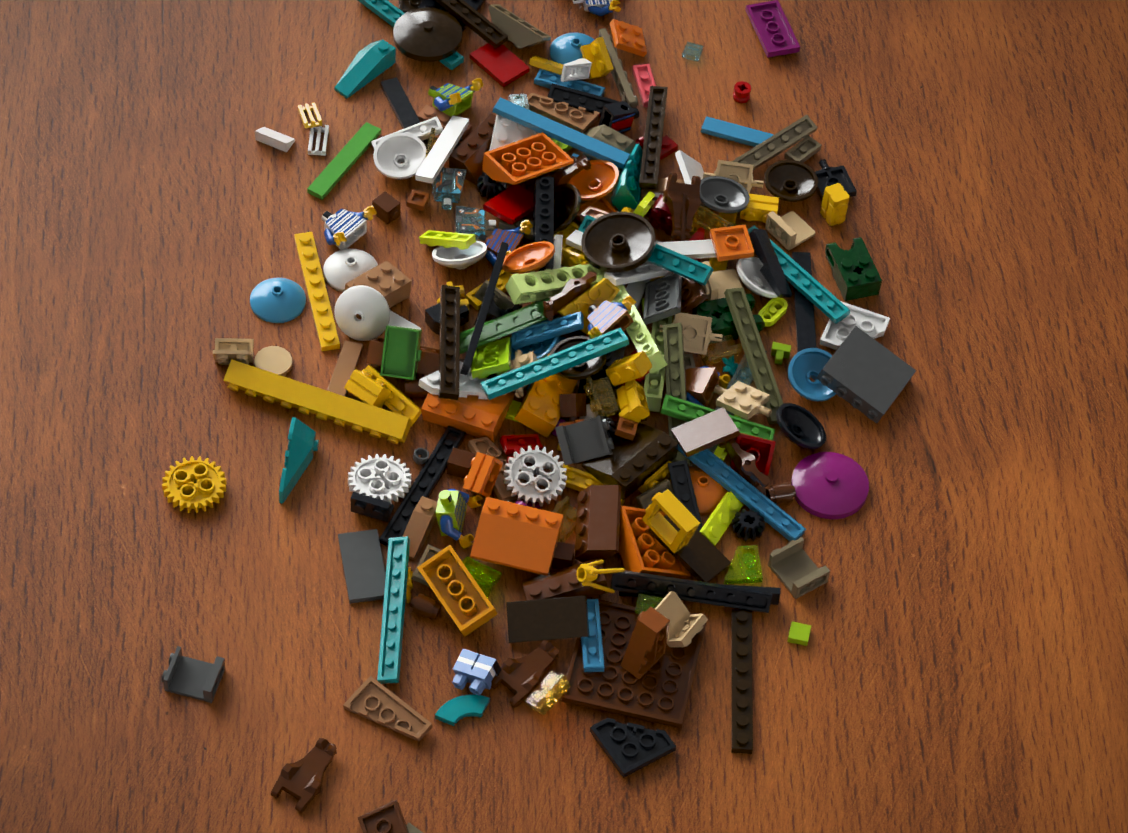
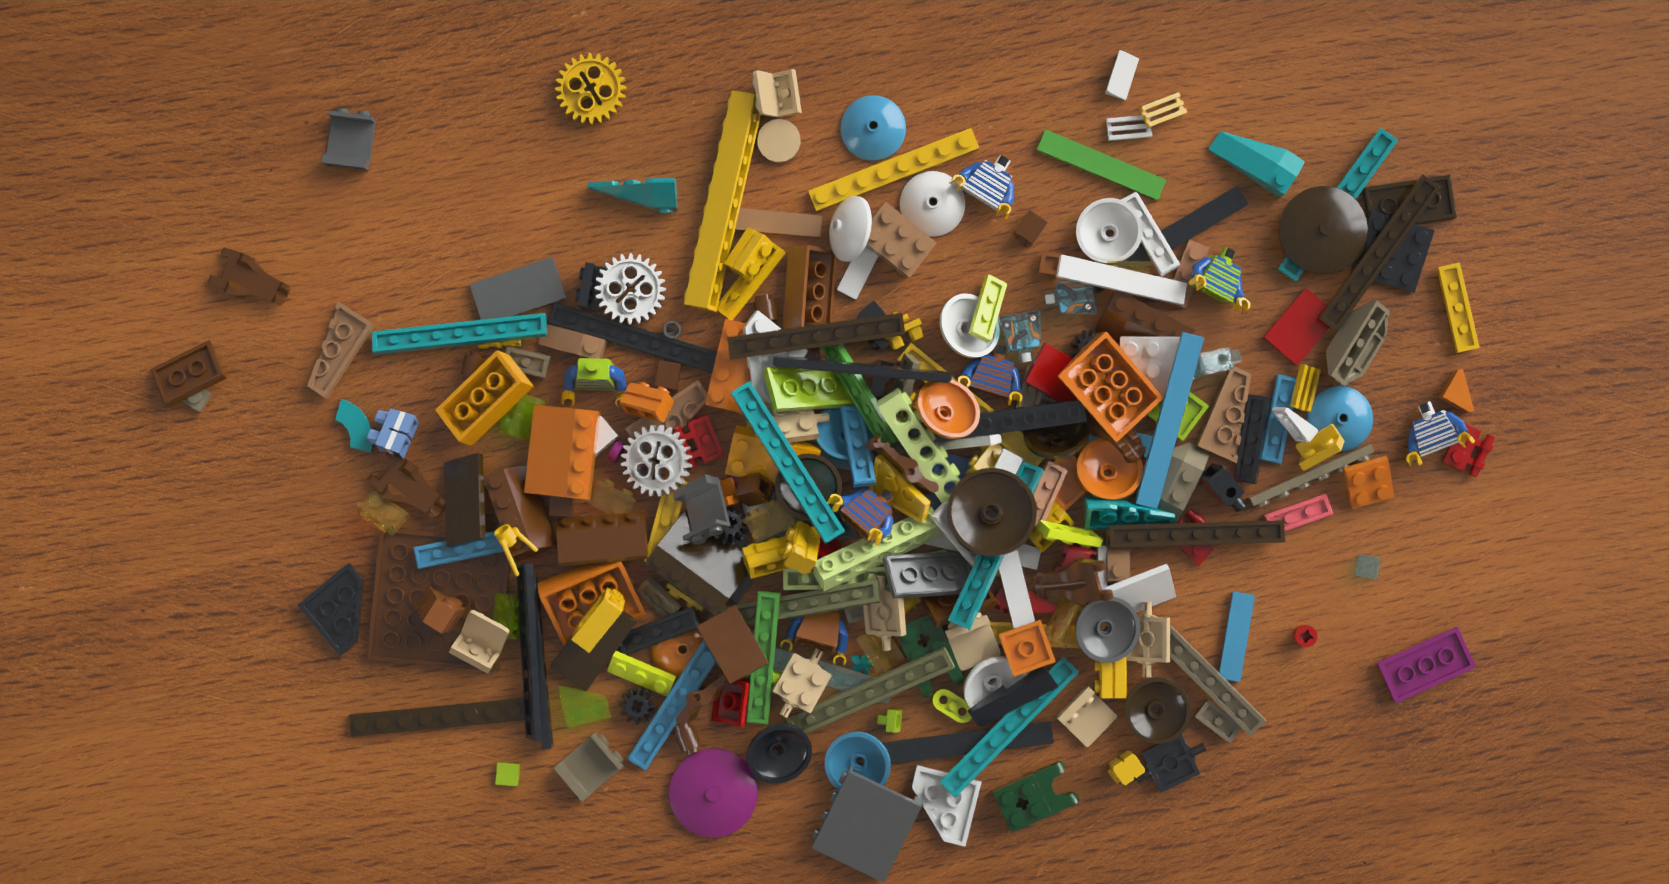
camera: 90 degrees right, 35 degrees up
(401, 352) = (794, 283): bright green container -> none
(626, 428) = (729, 554): dark orange plate -> none

